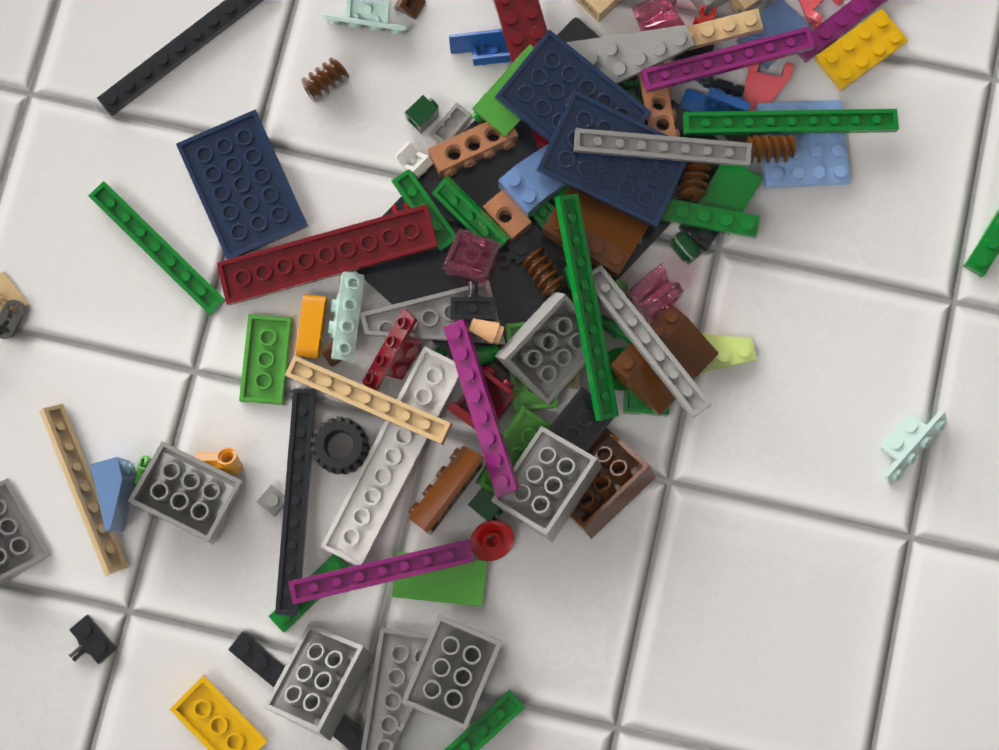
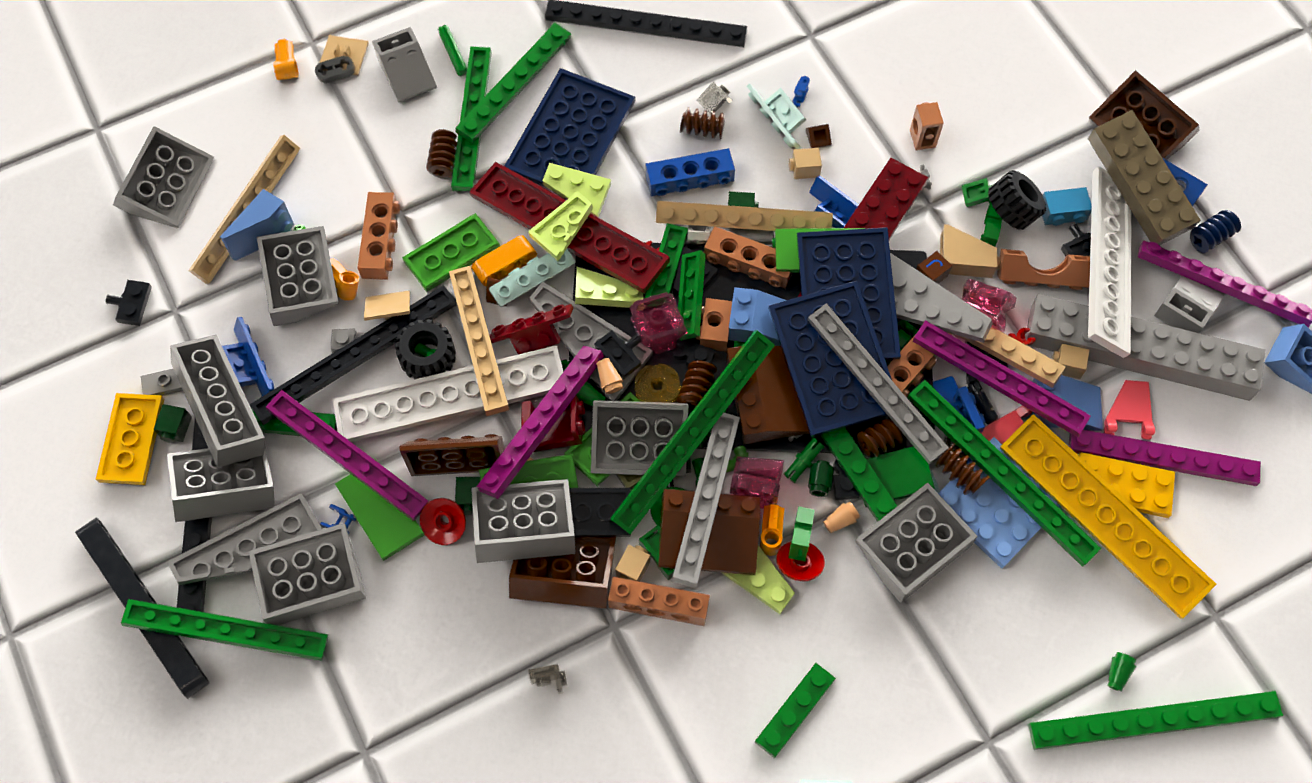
camera: 50 degrees right, 15 degrees down
(58, 261) = (404, 64): none -> light grey slope
(76, 211) = (452, 50): none -> green axle
(154, 190) = (512, 83): none -> green plate
(171, 299) = (442, 153): none -> reddish brown piece
(175, 383) = (378, 205): none -> nougat brick
(190, 663) = (160, 383): none -> light grey plate
(227, 590) = (246, 361): none -> blue bracket
(235, 684) = (172, 423): none -> dark green brick
(249, 636) = (217, 400): none -> light grey brick
(274, 444) = (387, 305): none -> tan piece
(299, 219) = (568, 181): none -> yellowish green wing
(308, 51) = (714, 97): none -> clear smoke bracket
(327, 260) = (561, 225): none -> yellowish green wing
(344, 444) = (424, 350): none -> green arm
(369, 95) = (697, 164): none -> blue brick
(406, 274) = (603, 290): none -> yellowish green wing
(420, 608) = (343, 513): none -> blue piece
(427, 35) = (805, 163): none -> tan brick
(436, 121) = (740, 216): none -> tan plate
(508, 293) = (654, 374): none -> clear yellow plate
(599, 24) = (935, 267): none -> reddish brown brick
(639, 431) = (633, 563): none -> tan brick
(662, 246) = (803, 460): none -> green pin
(668, 558) = (544, 675): none -> clear smoke bracket
(681, 437) = (658, 601): none -> nougat brick
(694, 311) = (772, 528): none -> light orange piece
(717, 298) = (801, 533): none -> piece
(725, 258) = (842, 517): none -> light nougat cone
(733, 306) = (809, 569): none -> red dish
(789, 225) = (915, 542): none -> light grey slope
(830, 408) = (795, 710): none -> green plate
(875, 82) = (1108, 517): none -> yellow plate
(981, 174) = (1120, 670): none -> green cone

